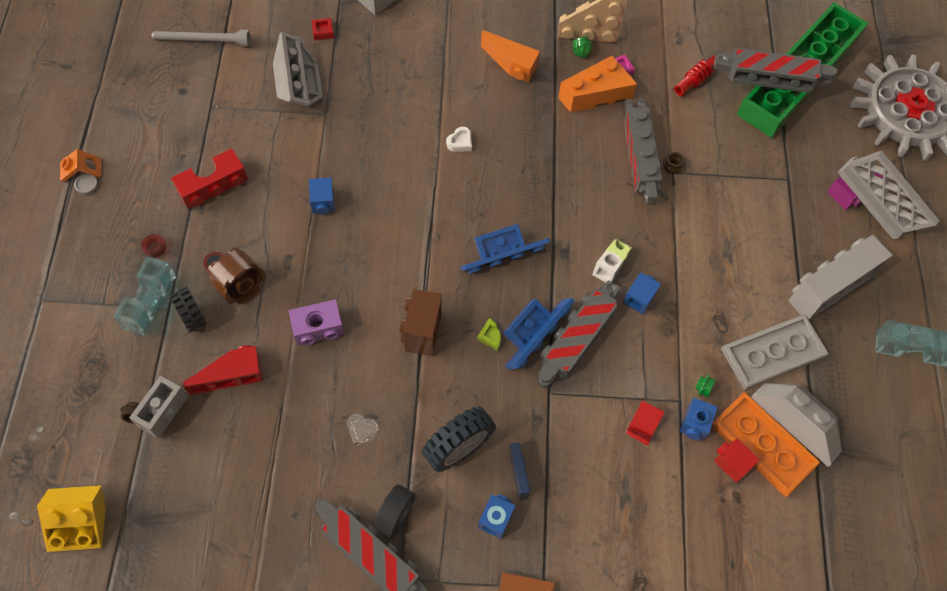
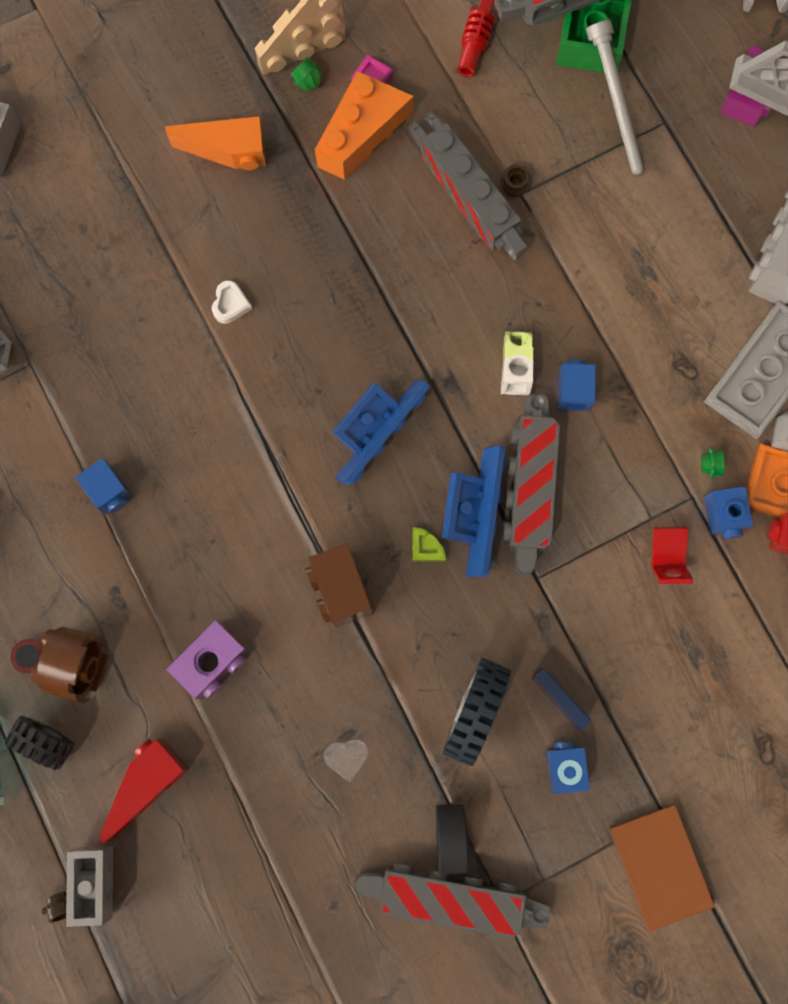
camera: 25 degrees left, 15 degrees up
(770, 105) = (601, 36): none -> light grey piece

